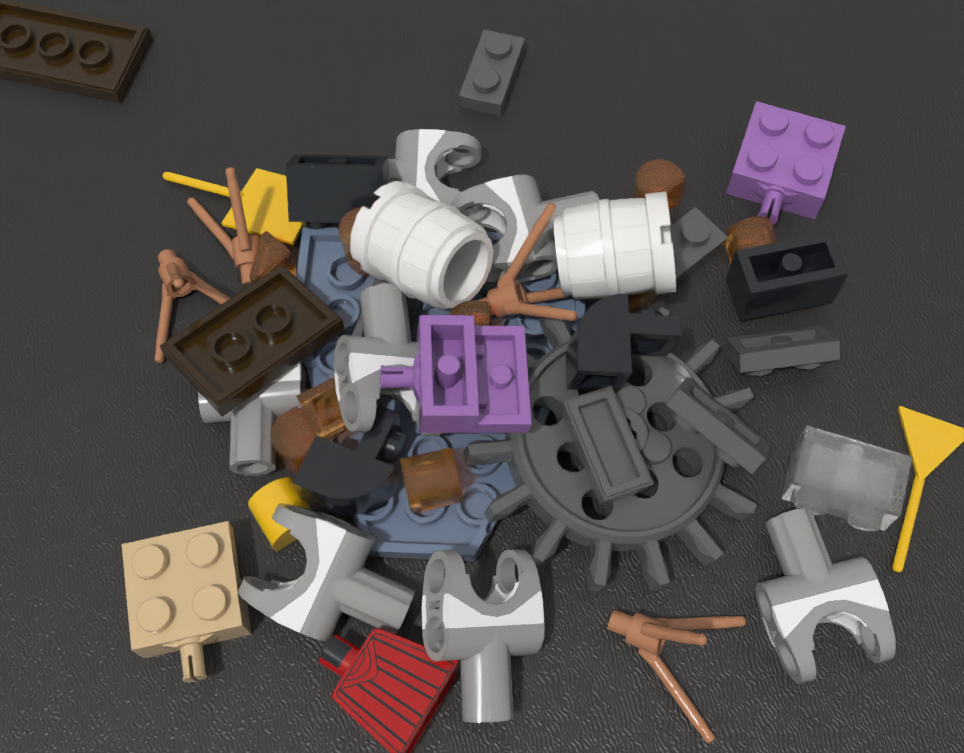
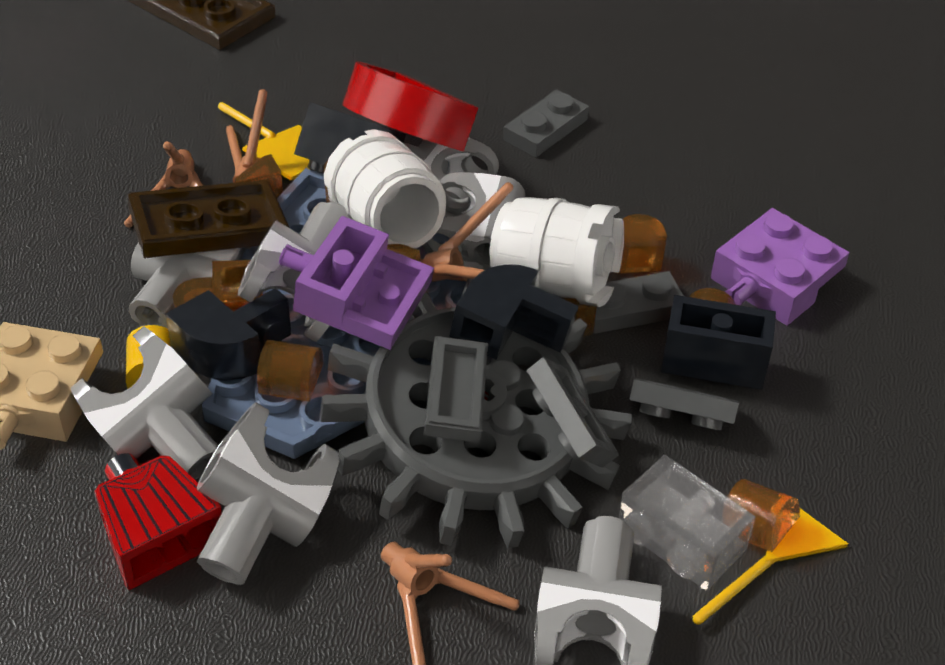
camera: 20 degrees right, 20 degrees down
(378, 126) = (409, 106): none -> red window
(903, 435) = (773, 512): none -> clear orange brick

